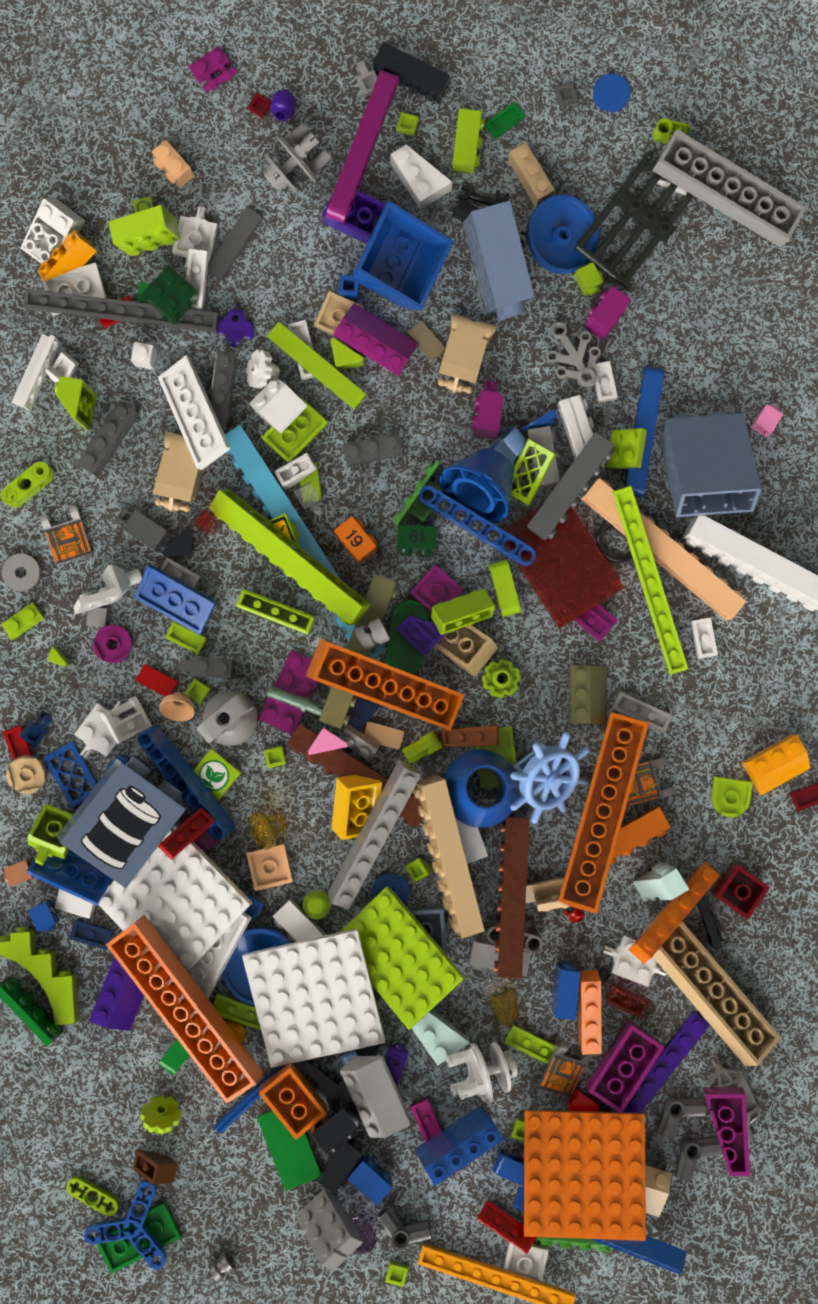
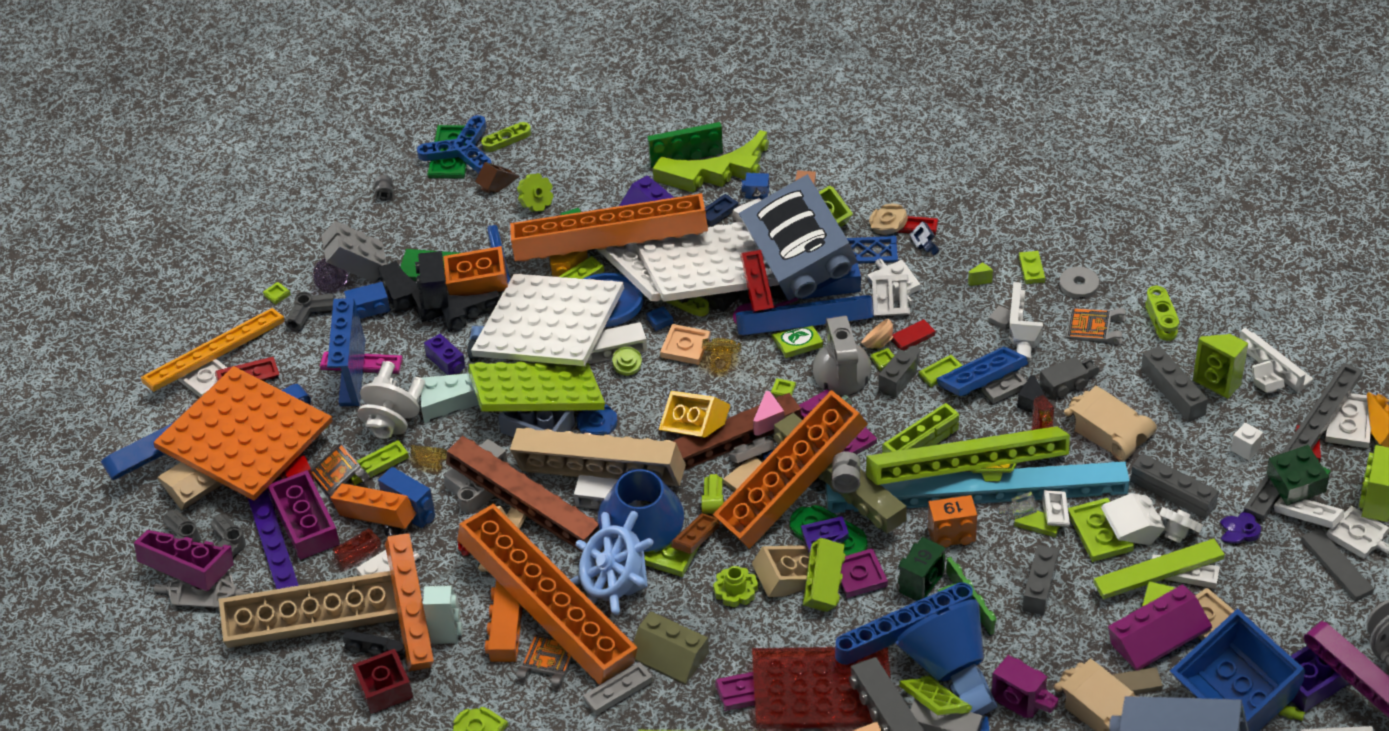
camera: 125 degrees right, 40 degrees down
(103, 638) = (961, 323): magenta plate -> none
(194, 413) = (1162, 446): white plate -> none
(373, 834) = (659, 414): light grey brick -> none
(375, 1095) = (433, 322): light grey slope -> none
(505, 588) = (821, 626): lime beam -> none

